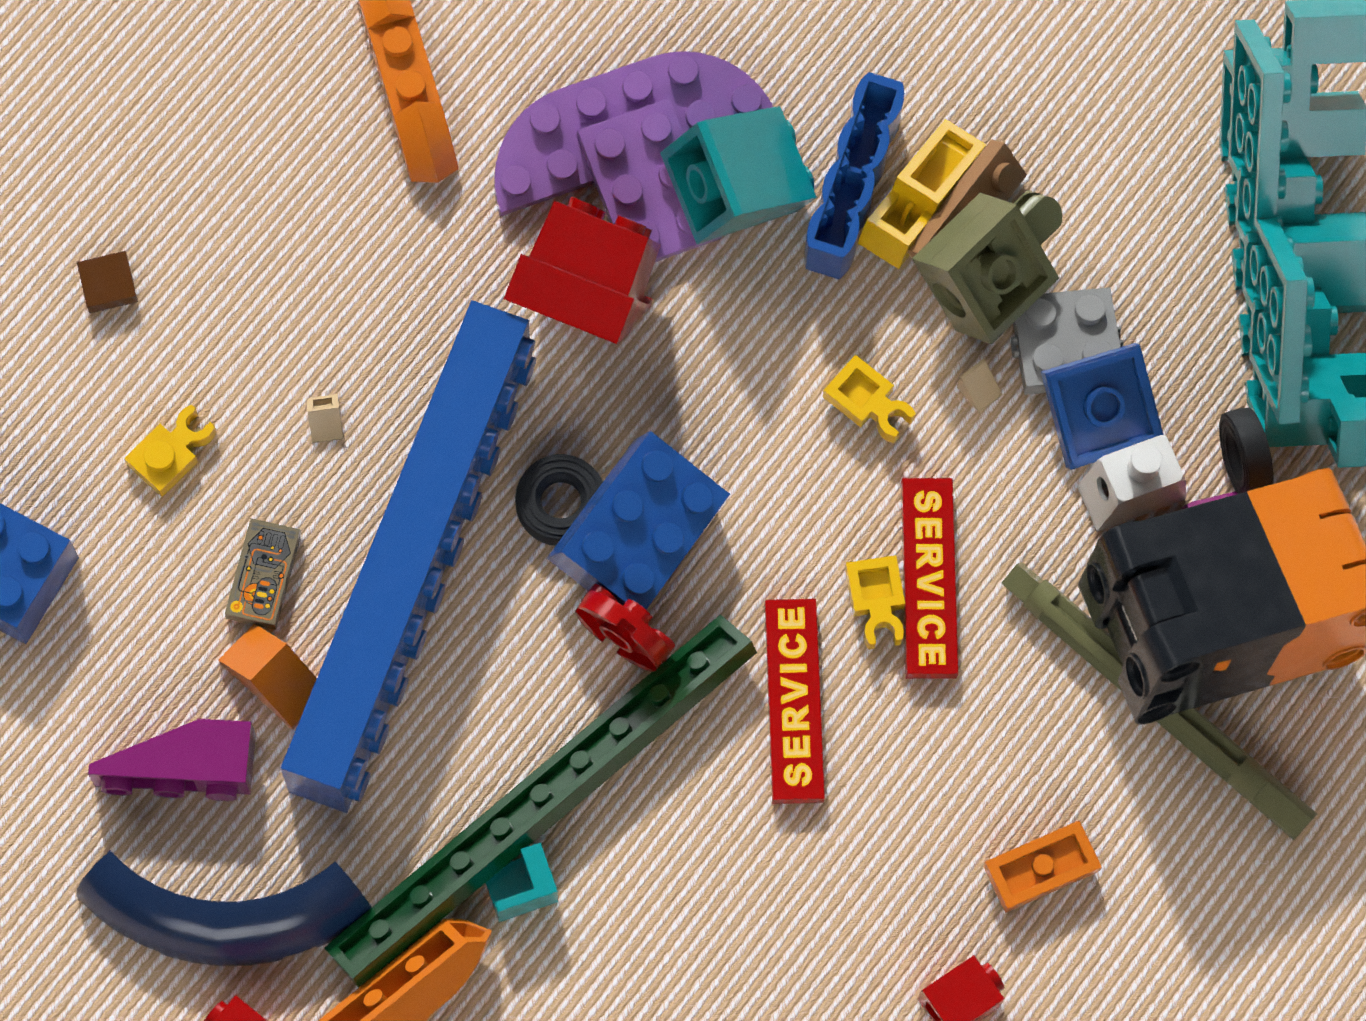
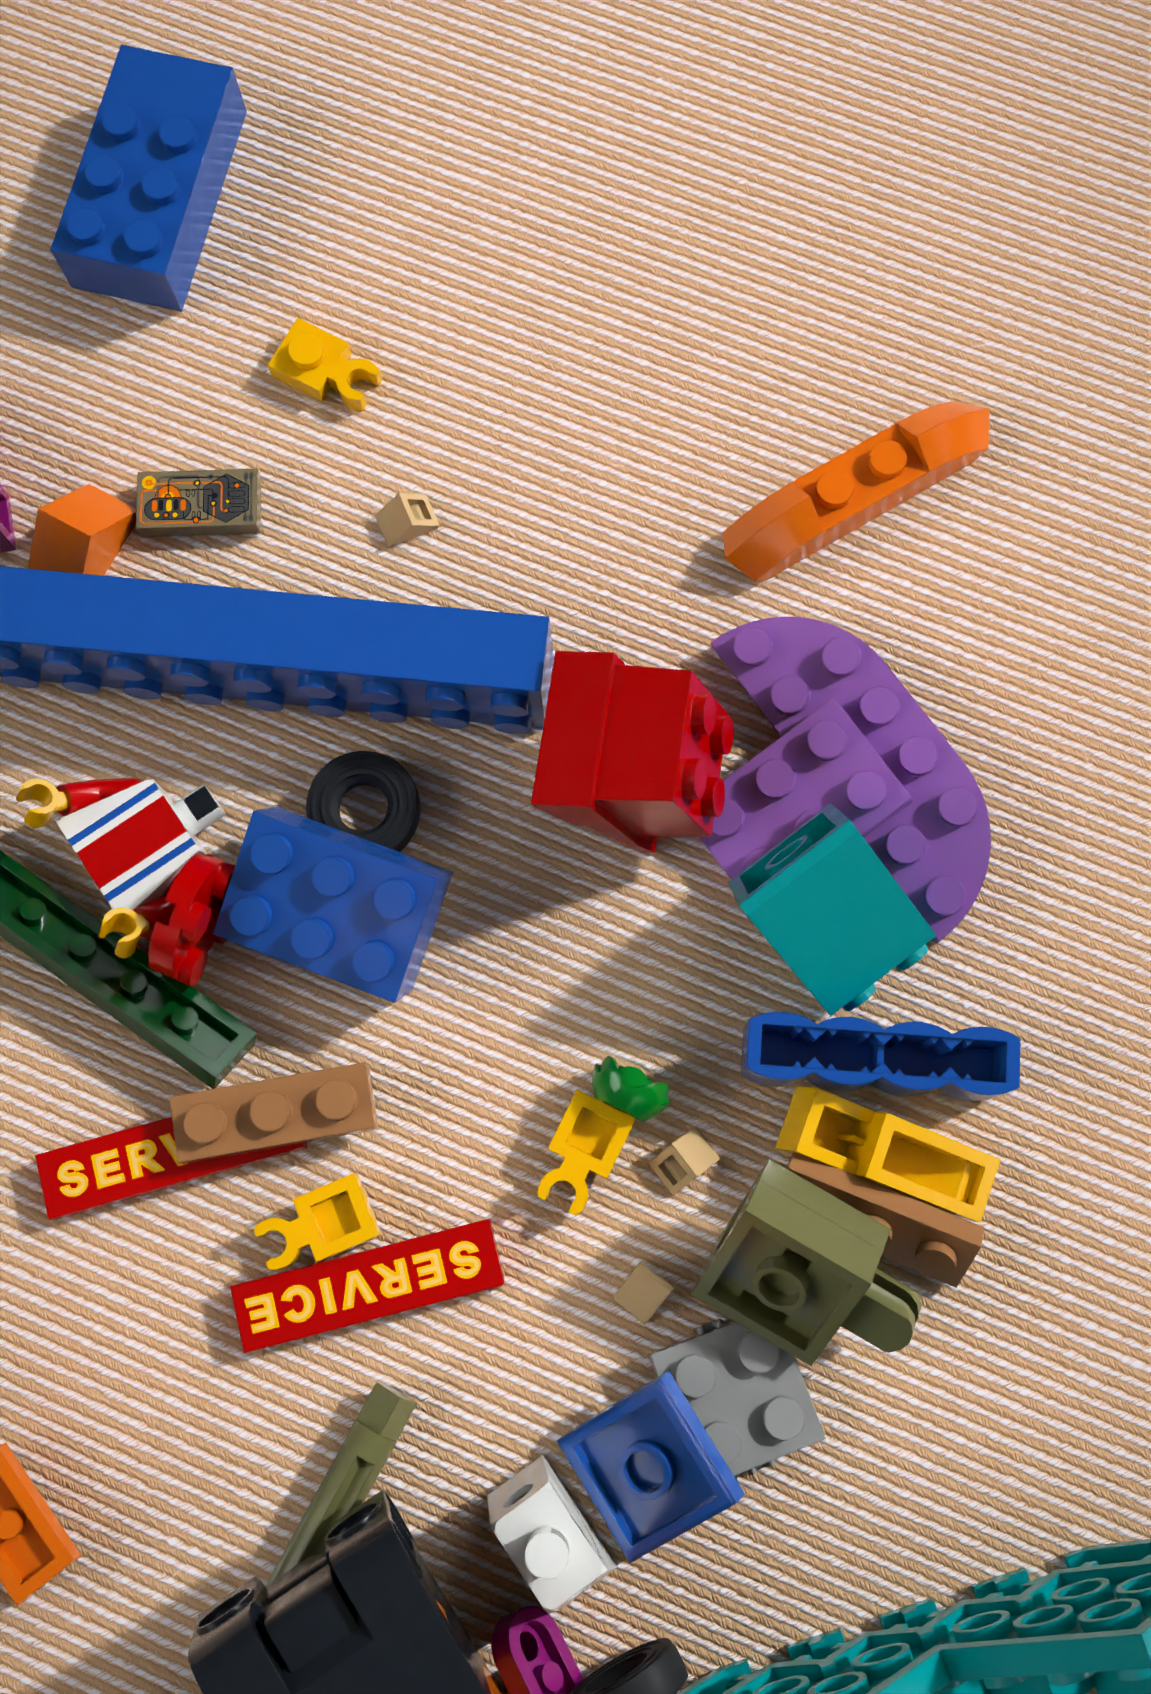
camera: 85 degrees right, 5 degrees up
(107, 282) = (507, 244): reddish brown tile -> none
(552, 671) = (128, 842): none -> torso
(786, 610) = (273, 1113): none -> medium nougat plate
(833, 354) = (629, 1090): none -> green plate
(892, 336) = (684, 1160): none -> tan piece

